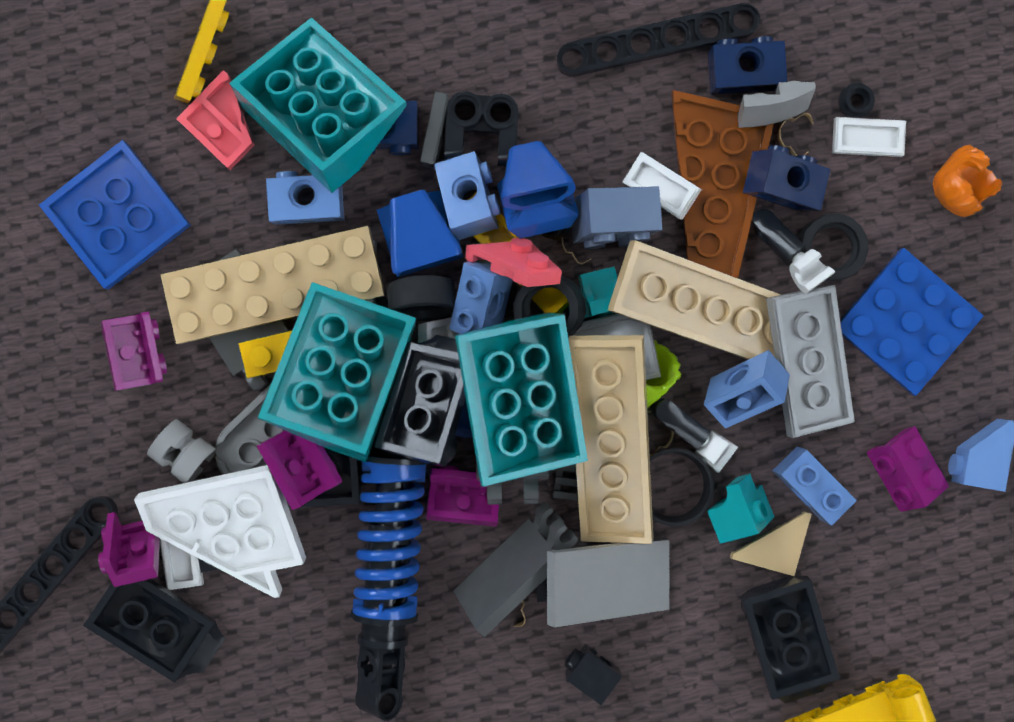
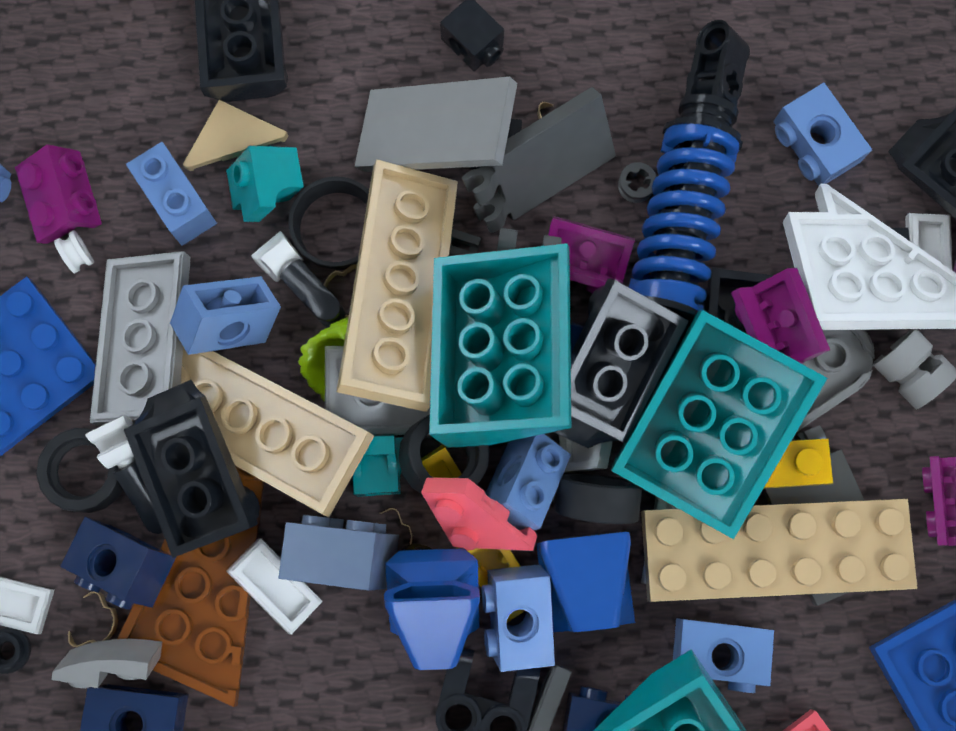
camera: 170 degrees left, 10 degrees down
(286, 658) = (821, 114): none -> medium blue brick
(437, 579) = (632, 171): none -> dark grey bush
(746, 258) = (189, 471): none -> black slope
(882, 423) = (73, 251): none -> white bush

